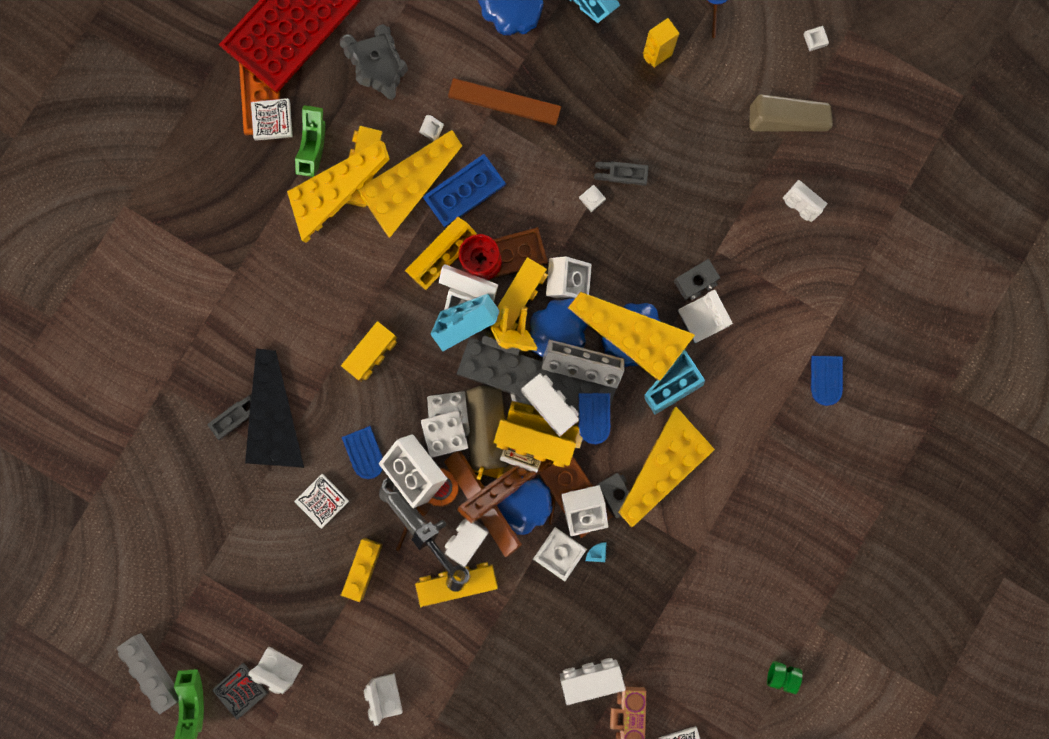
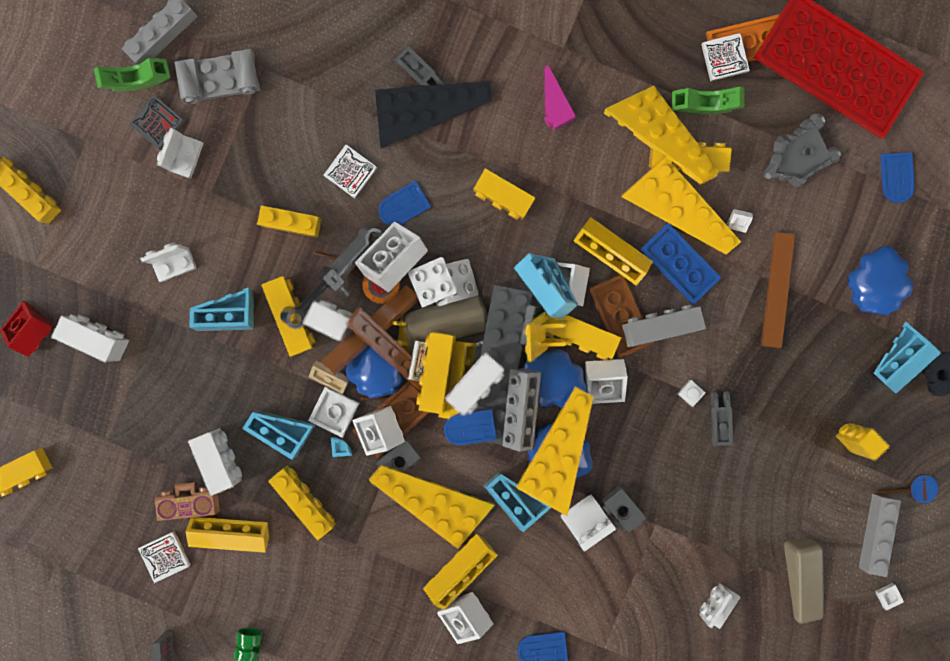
camera: 80 degrees right, 5 degrees up
(205, 621) = (217, 76): none -> light grey piece
(293, 287) = (555, 103): none -> dark pink slope
(444, 649) = (226, 313): none -> medium azure wedge
(467, 282) = (586, 281): white tile -> none
(479, 247) = (618, 281): red wheel -> none
(523, 215) = (664, 326): none -> light grey brick
(523, 555) = (324, 376): none -> tan plate
(572, 611) = (279, 432): none -> medium azure wedge
(646, 599) = (302, 502): none -> yellow brick
(668, 681) = (227, 534): none -> yellow brick
(737, 450) = (460, 572): none -> yellow brick
(755, 39) = (879, 535): none -> light grey brick
(785, 451) = (466, 618): none -> white slope

